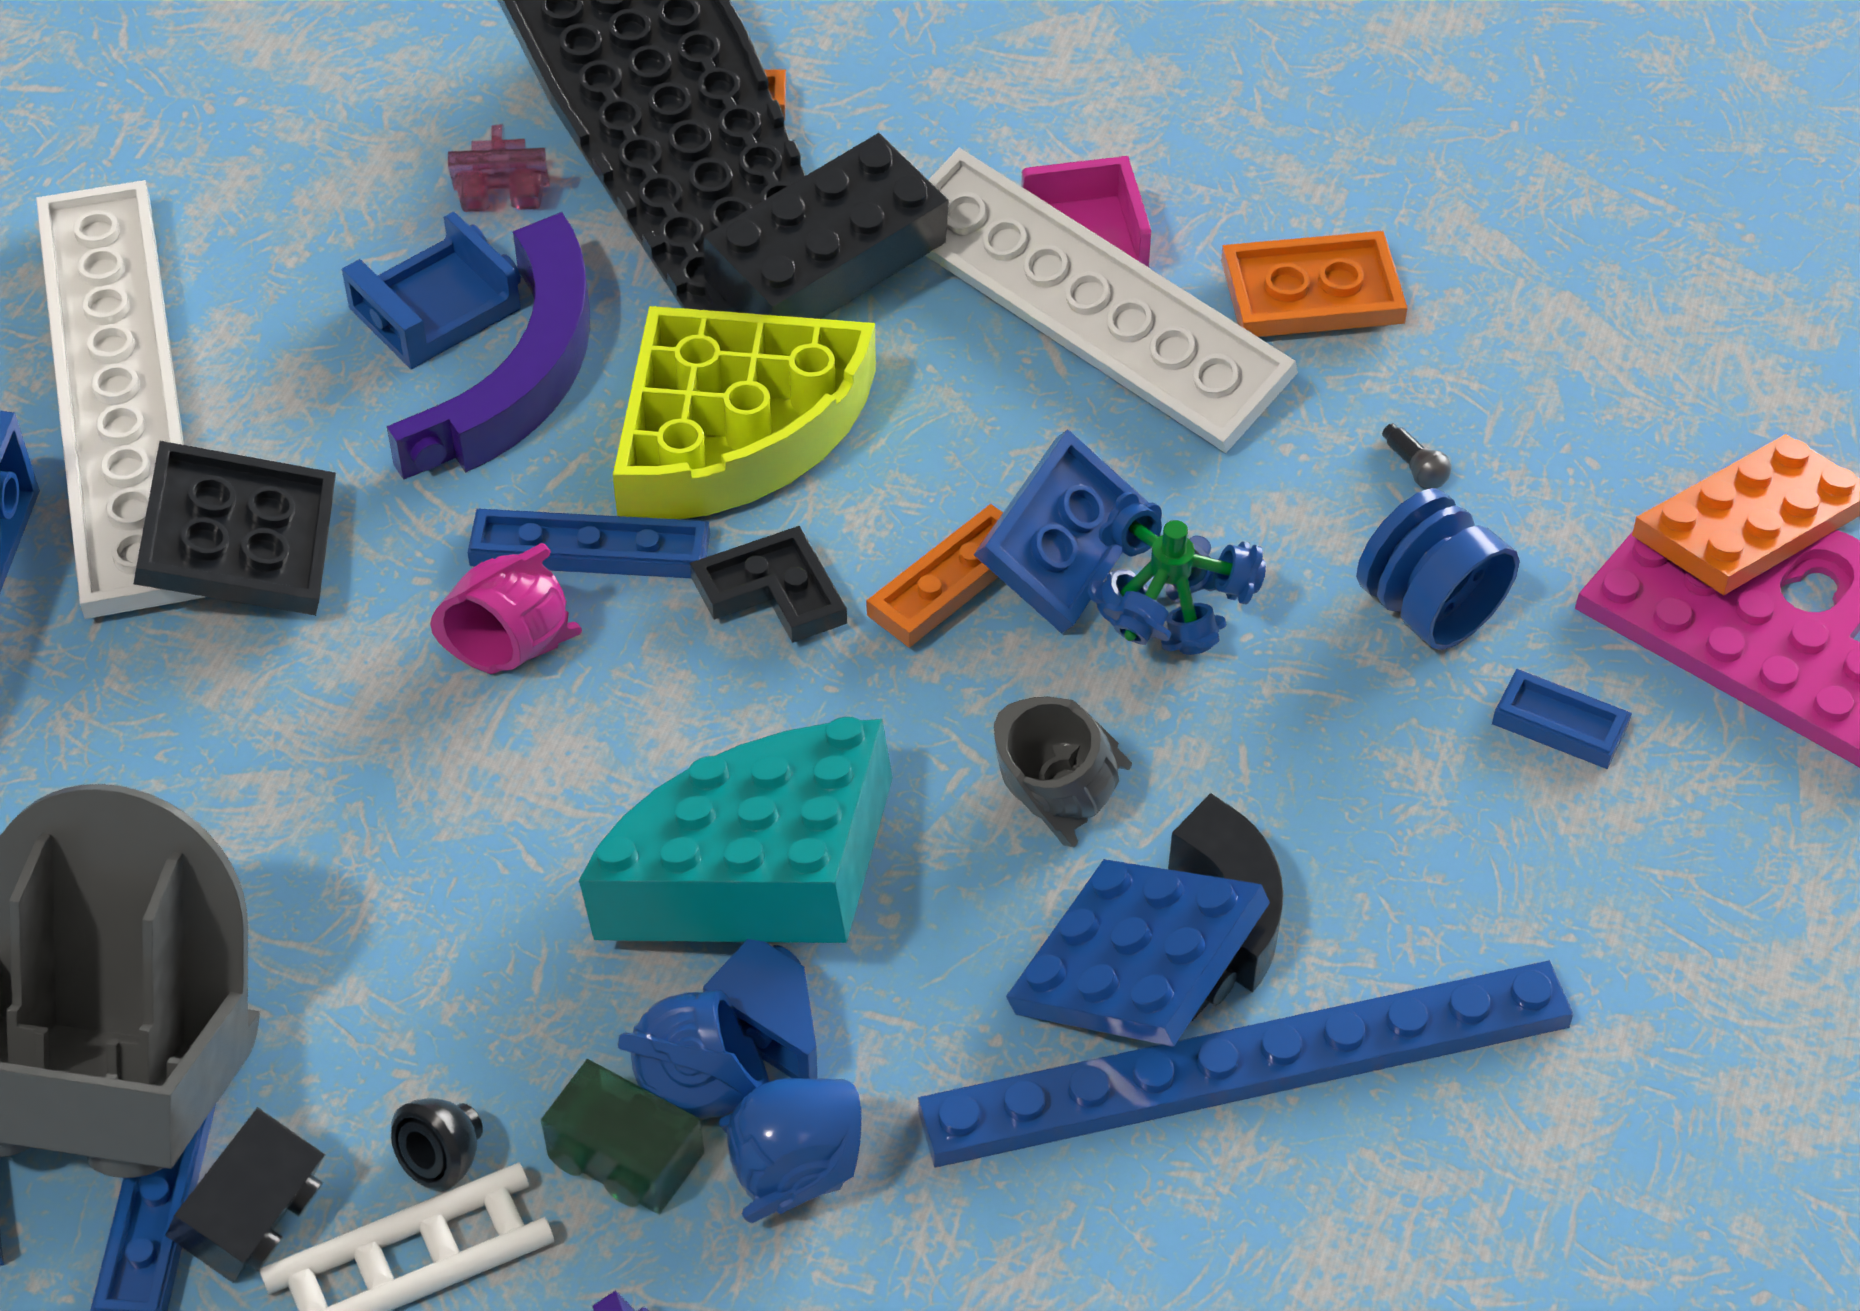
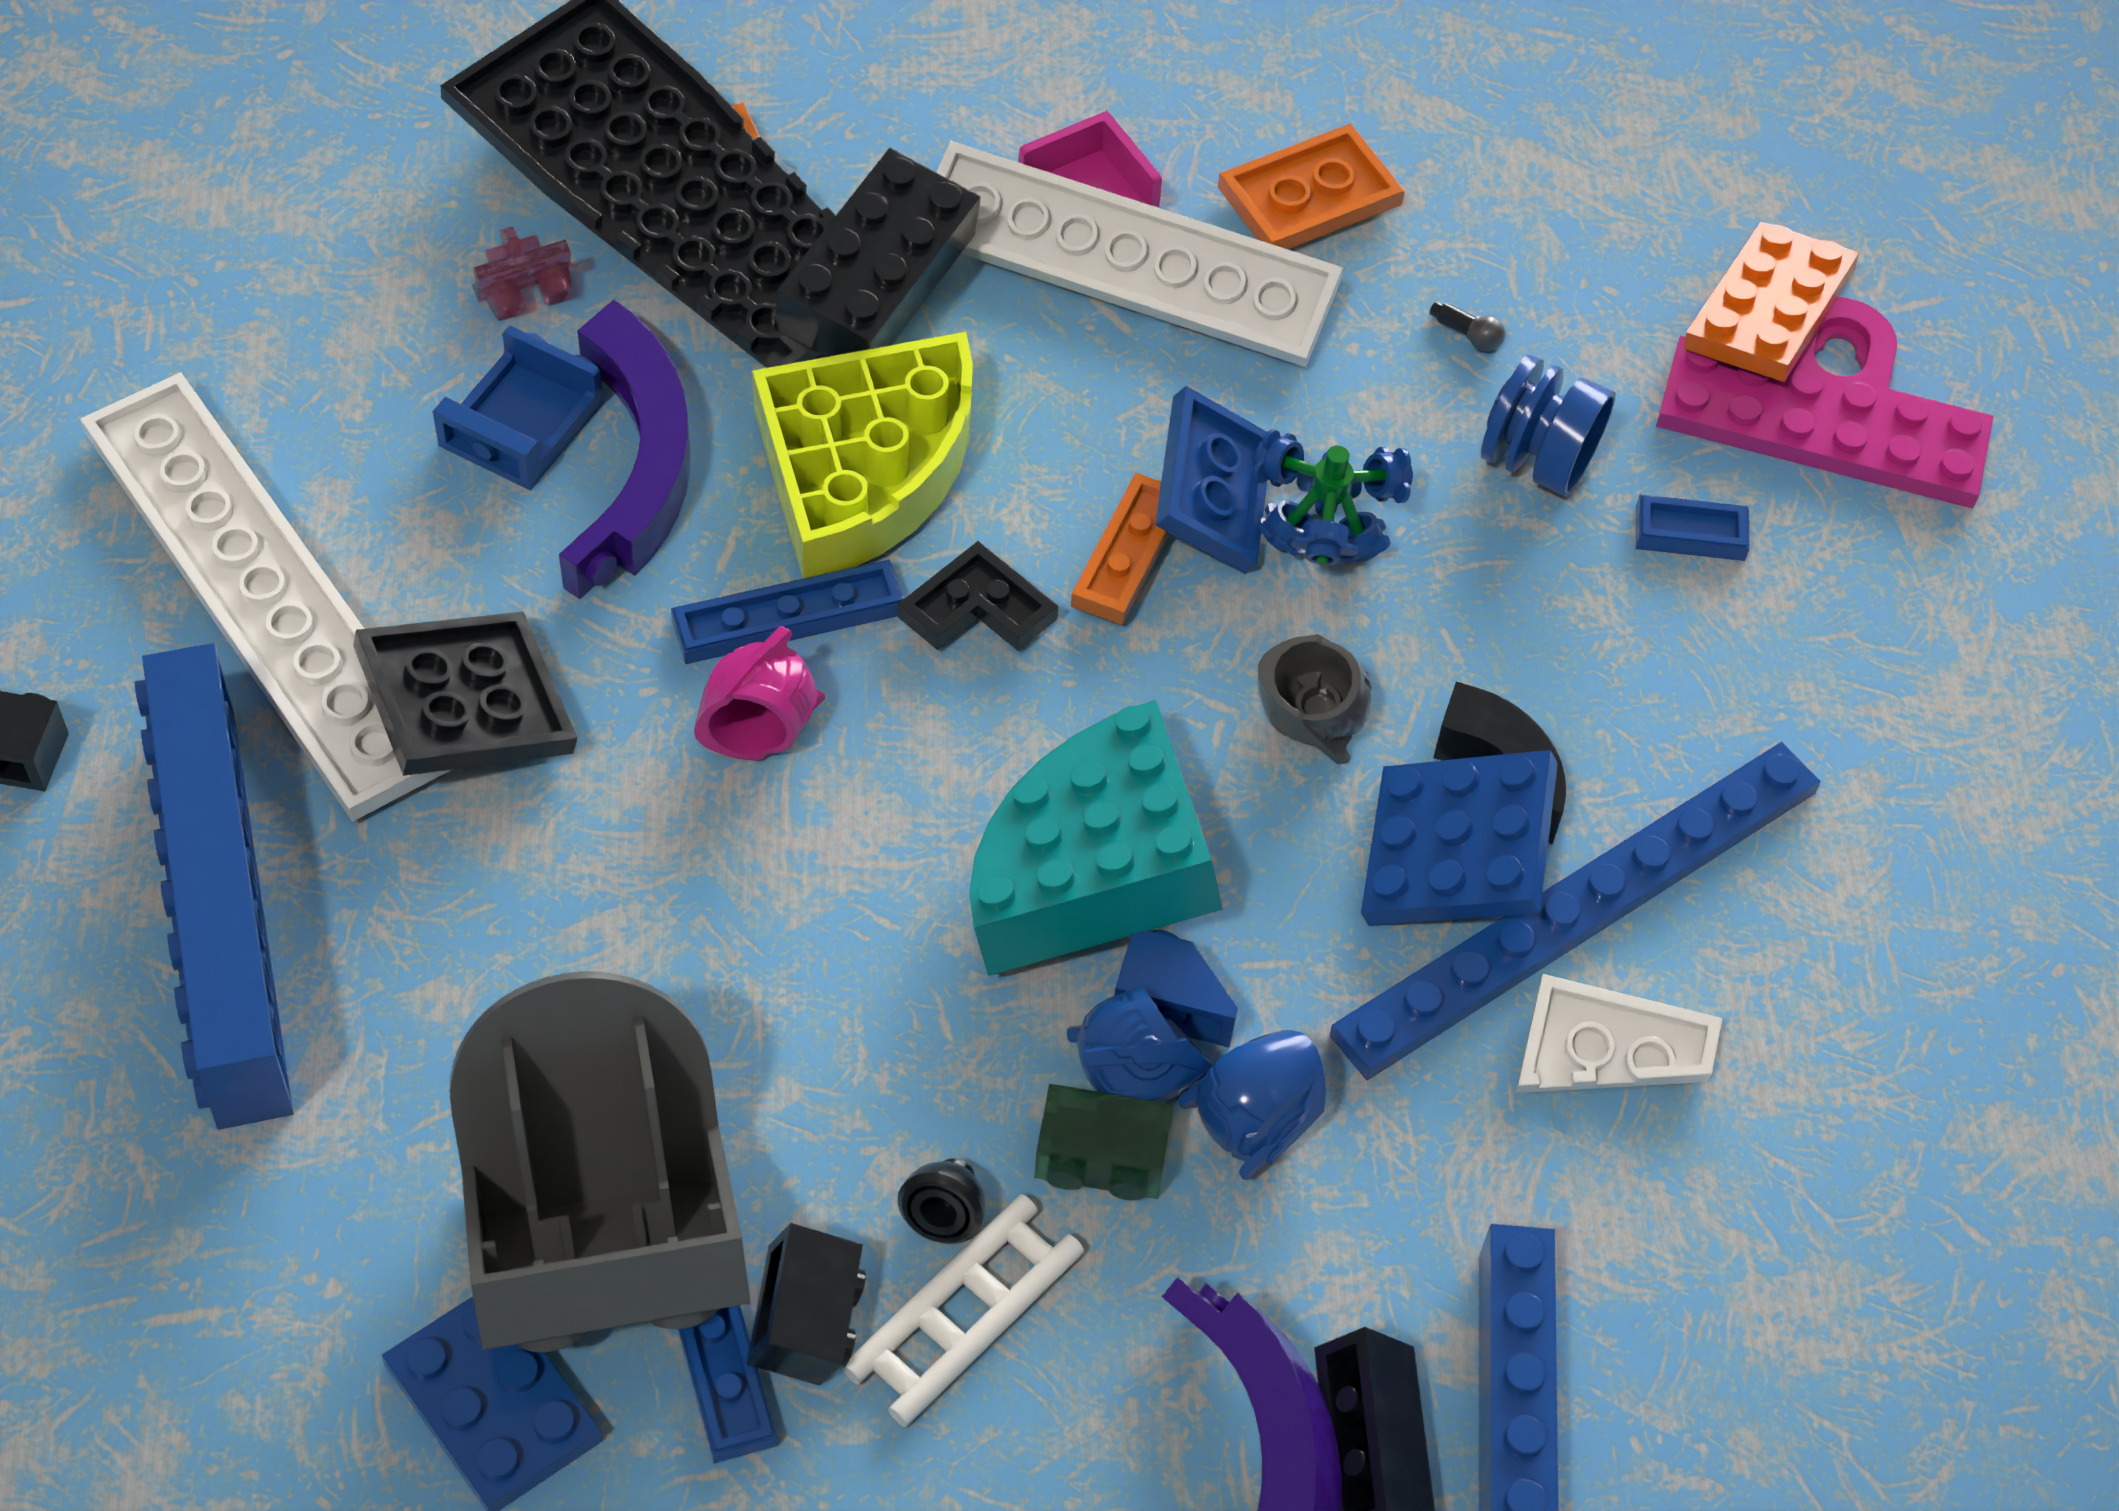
camera: 25 degrees left, 5 degrees up
(1208, 1208) = (1612, 1040): none -> white wing

